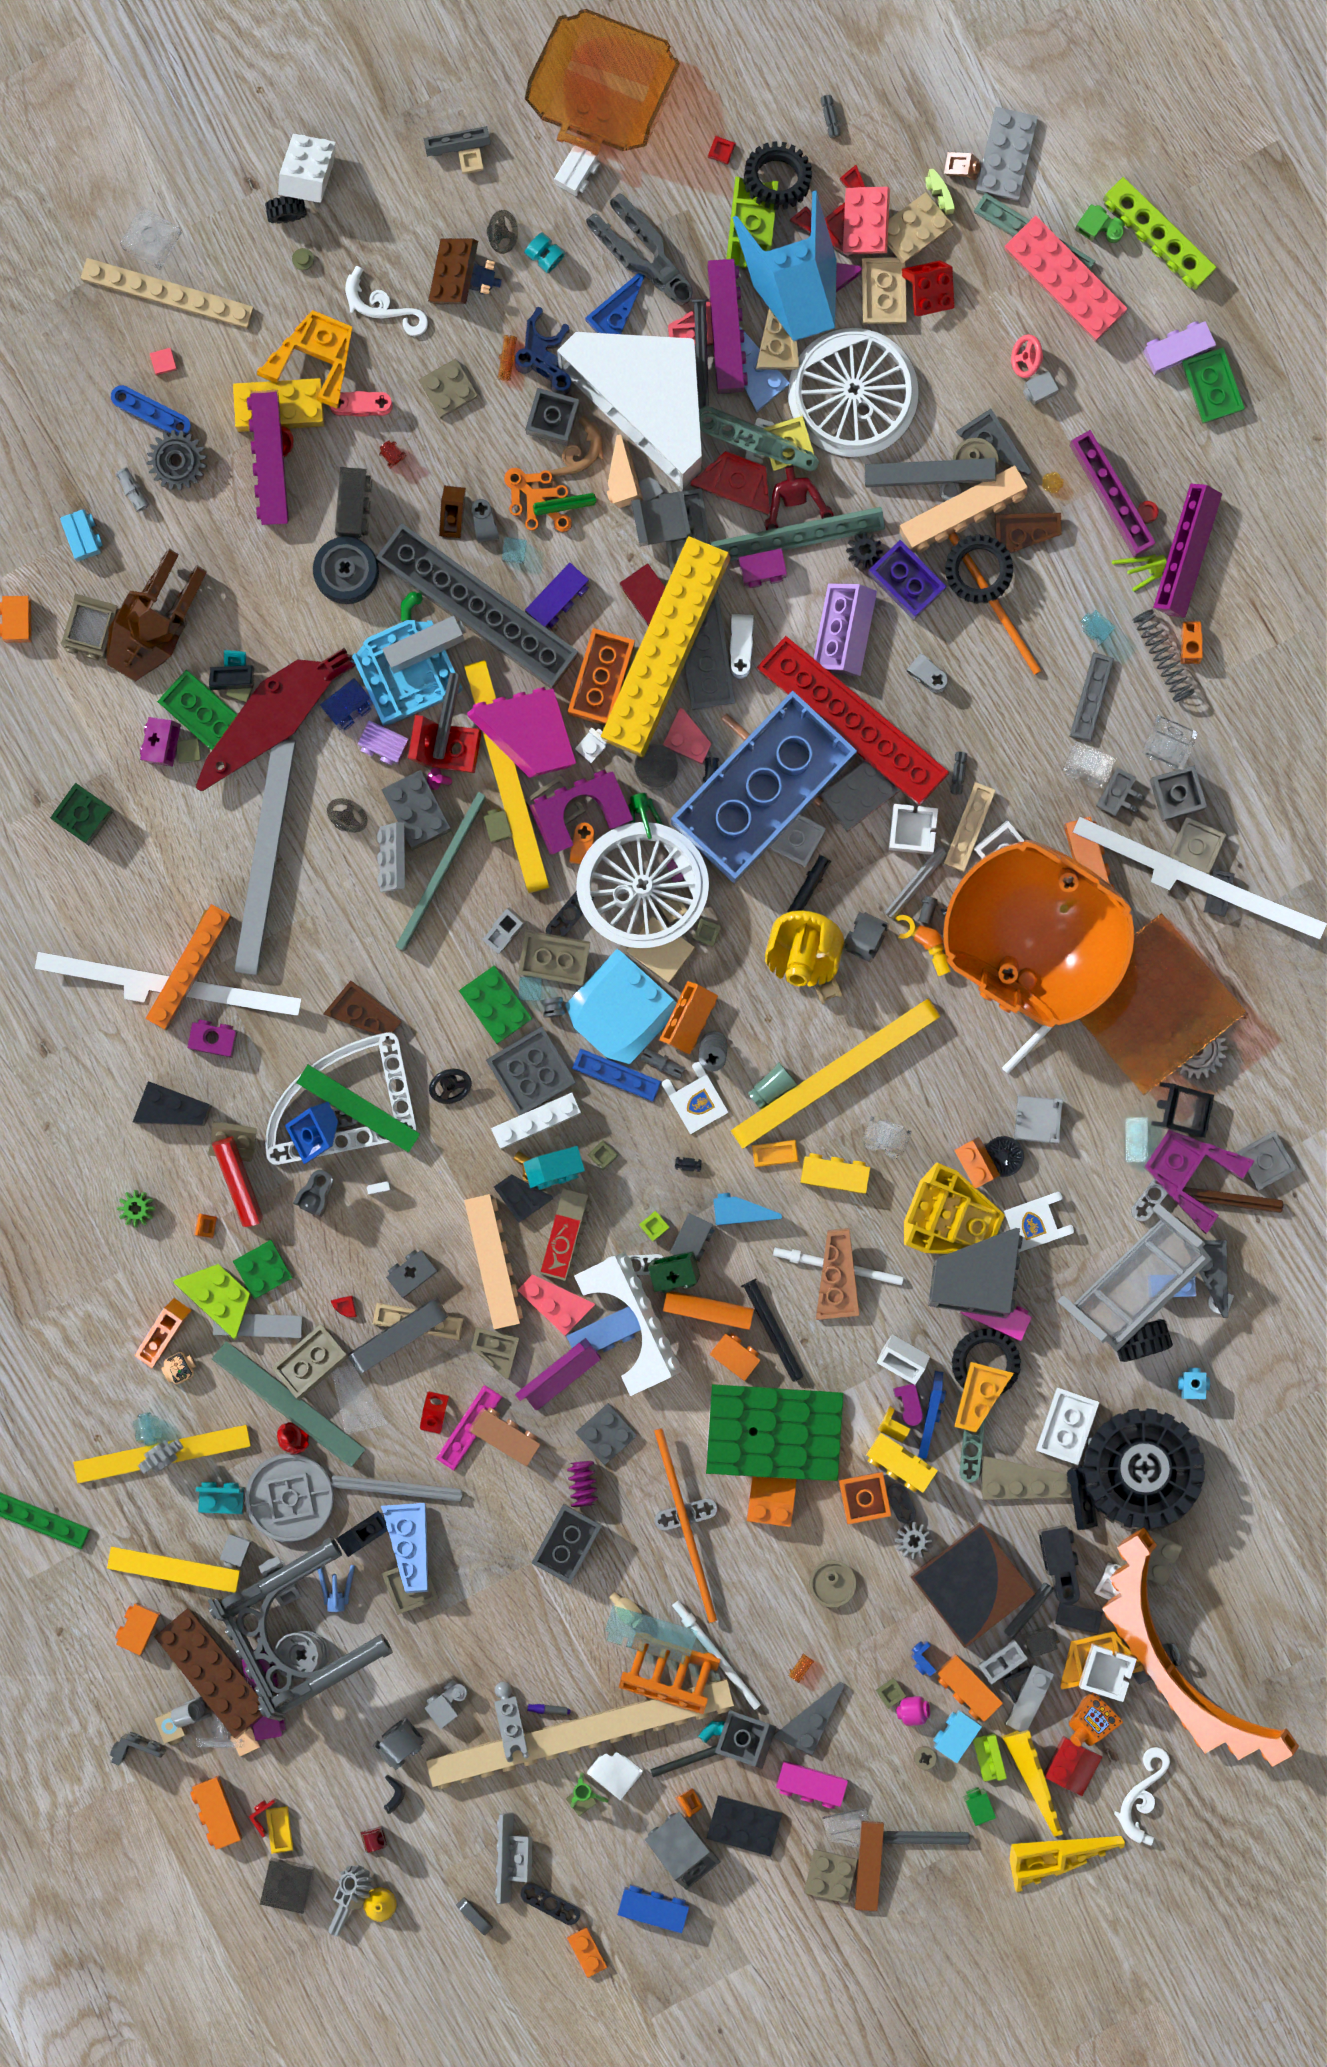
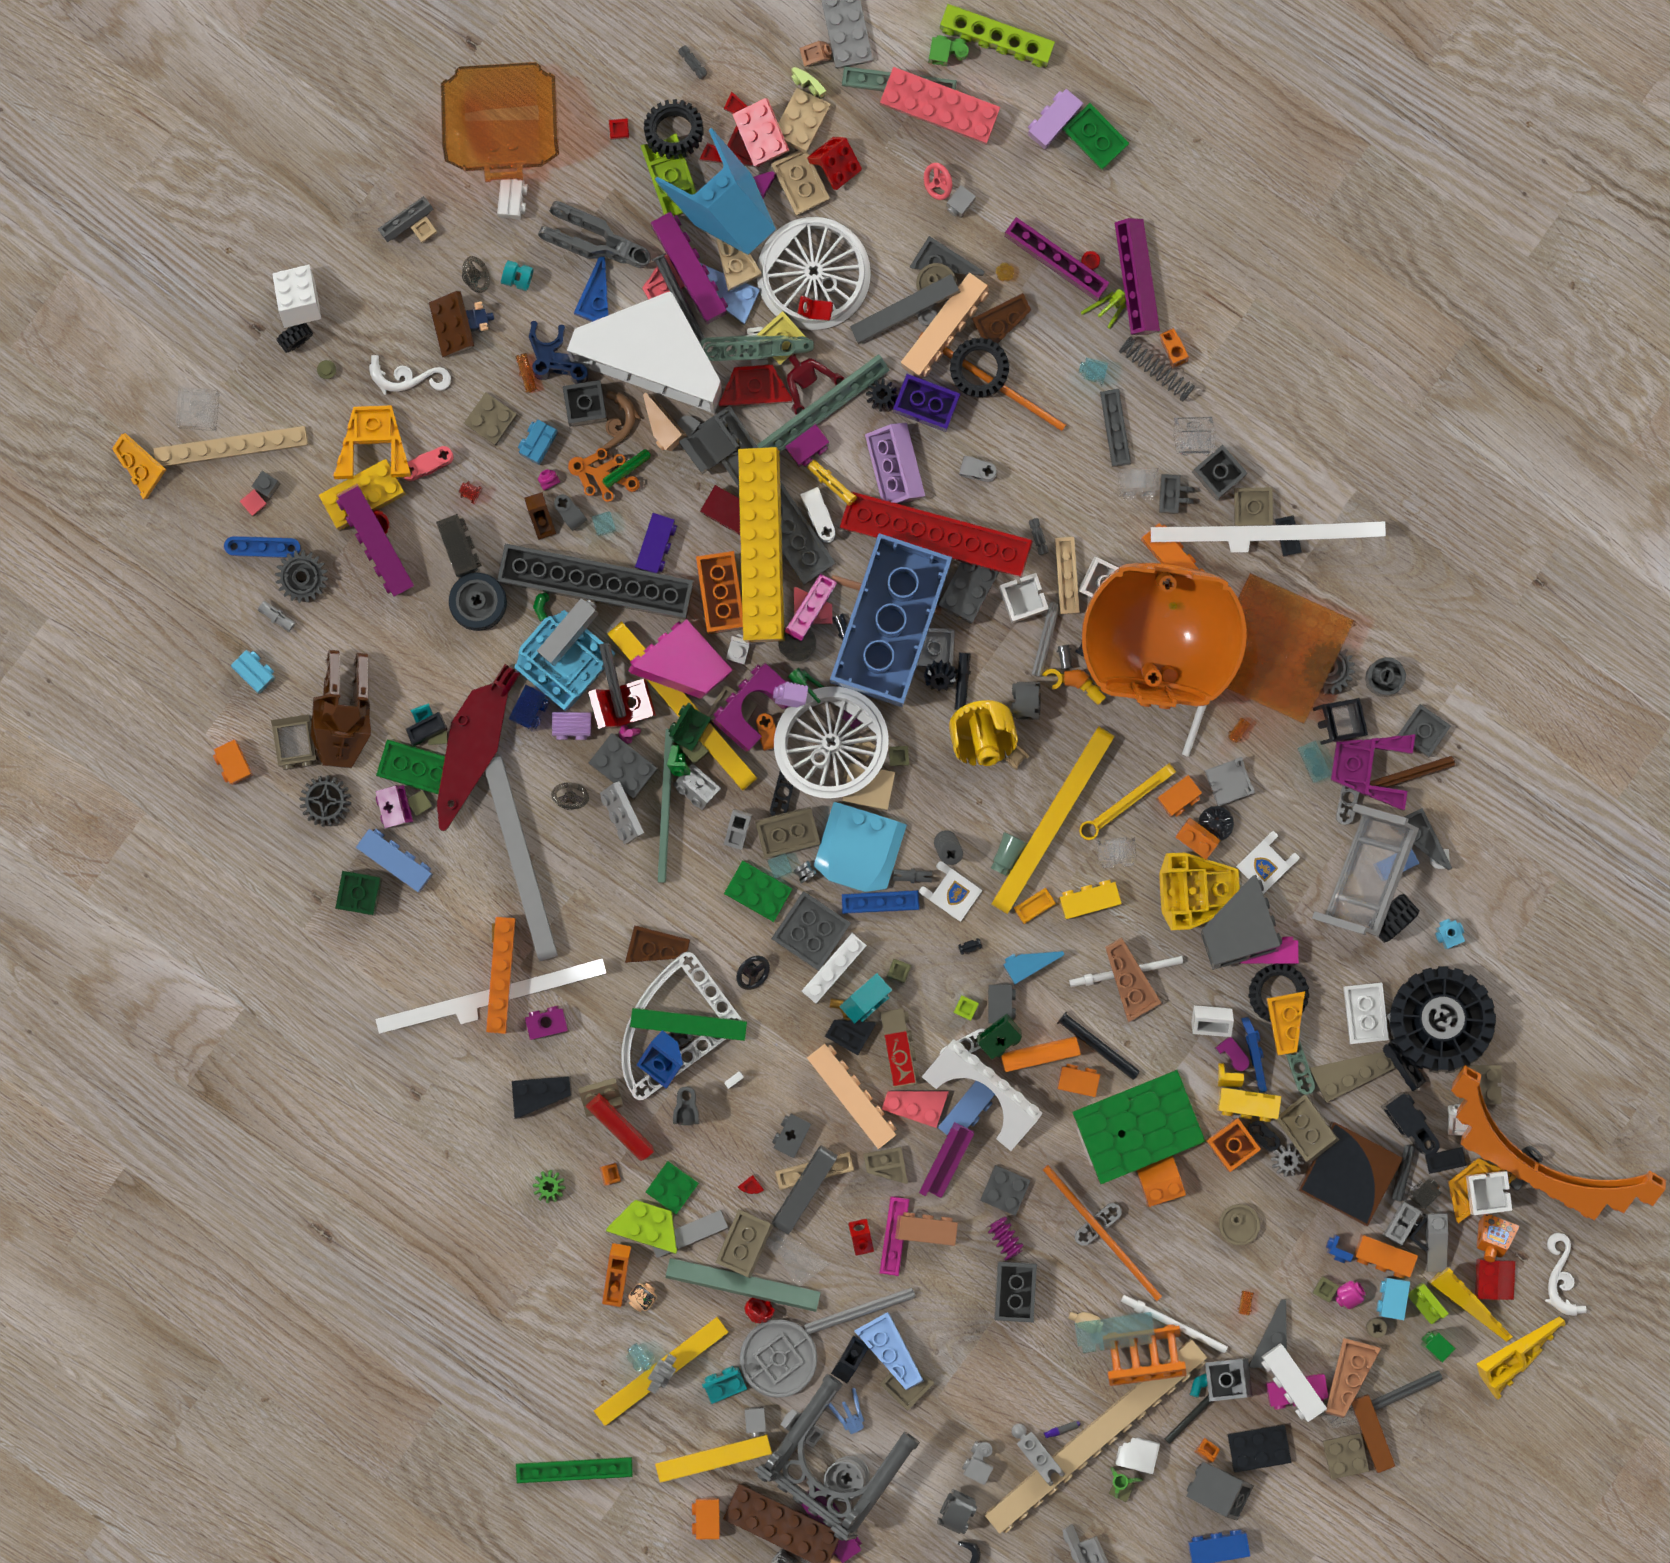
camera: 25 degrees left, 0 degrees up
(65, 269) = (140, 465): none -> light orange wing
(87, 711) = (326, 791): none -> dark grey gear
(135, 798) = (392, 859): none -> medium blue brick
(184, 348) = (266, 484): none -> dark grey brick
(473, 832) = (676, 762): none -> green bracket
(478, 478) = (548, 479): none -> dark pink plate
(482, 867) = (697, 787): none -> light grey bracket
(485, 434) = (538, 441): none -> dark azure brick
(502, 800) = (689, 727): none -> dark green bracket
(623, 815) = (790, 694): none -> lavender brick
(687, 735) = (811, 607): none -> tile
(688, 1017) = (916, 830): orange brick -> none
(766, 608) = (826, 478): none -> yellow pin
(788, 869) = (940, 675): none -> black gear
(811, 1774) = (1293, 1382): none -> white brick
(836, 429) = (815, 309): none -> red bracket
(876, 1791) = (1351, 1370): none -> nougat wing
(925, 1089) = (1129, 800): none -> yellow piece
(949, 1517) = (1307, 1129): none -> dark tan plate
(978, 1110) = (1179, 796): none -> orange brick
(1072, 1070) = (1238, 730): none -> clear orange pin
(1251, 1086) = (1385, 677): none -> dark grey brick

